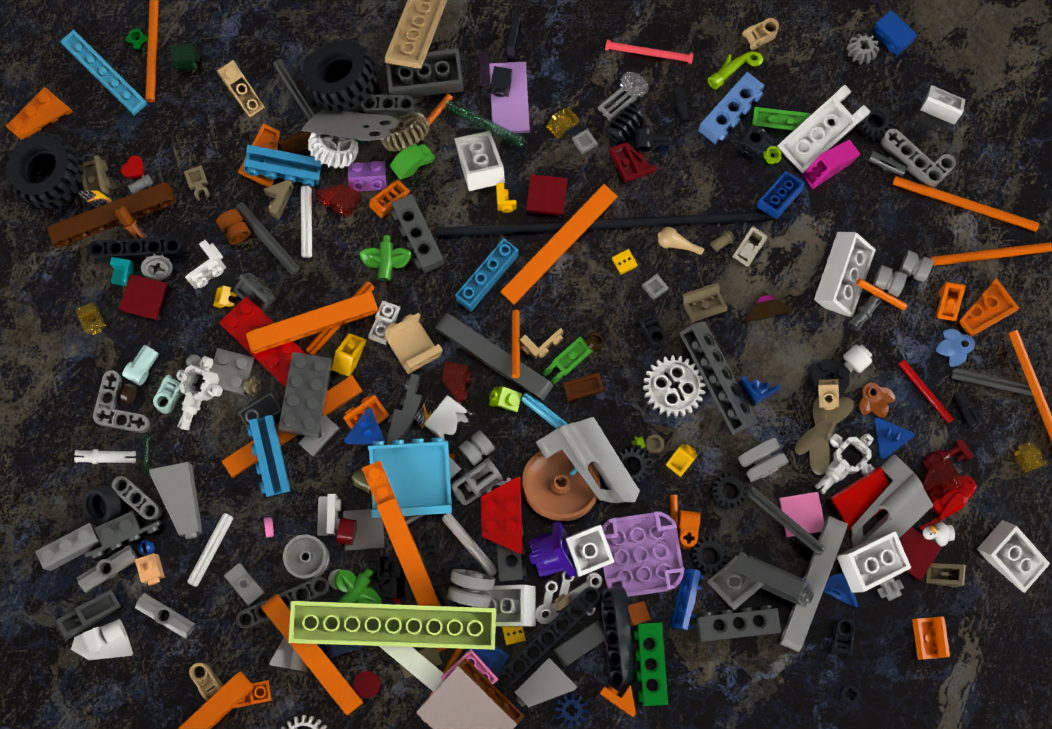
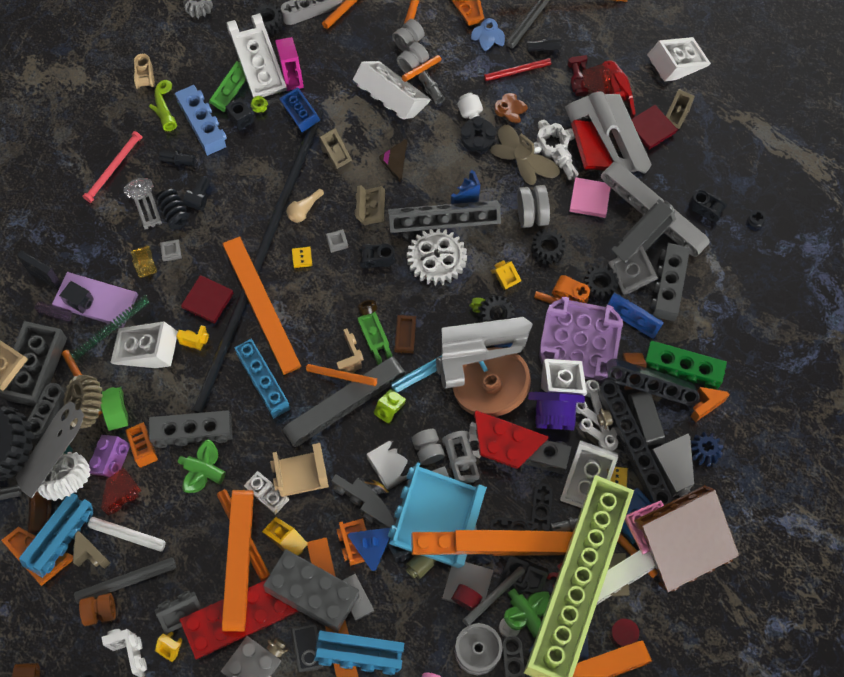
camera: 70 degrees left, 10 degrees down
(197, 180) = (26, 631): dark tan plate -> none
(328, 515) = (442, 613): white bracket -> none
(356, 554) = (492, 597): none -> dark grey bar
(455, 380) = (354, 444): clear red slope -> none
(469, 544) = (518, 487): white axle -> none
(470, 588) = (565, 495): light grey wheel -> none
(630, 163) = (210, 218): dark red wing -> none
(654, 444) = (482, 291): dark tan tile -> none
(720, 242) = (318, 167): dark tan pin -> none
(786, 521) = (593, 208): dark grey axle -> none
(828, 394) = (494, 135): tan brick -> none
(838, 587) = (666, 191): blue tile -> none
(873, 562) = (652, 157): white slope -> none
(876, 157) = (301, 29): dark grey pin -> none
(890, 437) = (546, 110): blue piece -> none
(890, 589) = (677, 154): light grey gear -> none
(931, 638) = (728, 139): orange bracket -> none
(939, 533) = (643, 101): white animal -> none
(951, 298) = (447, 19): orange slope -> none
(1029, 457) = (602, 17): clear yellow brick -> none

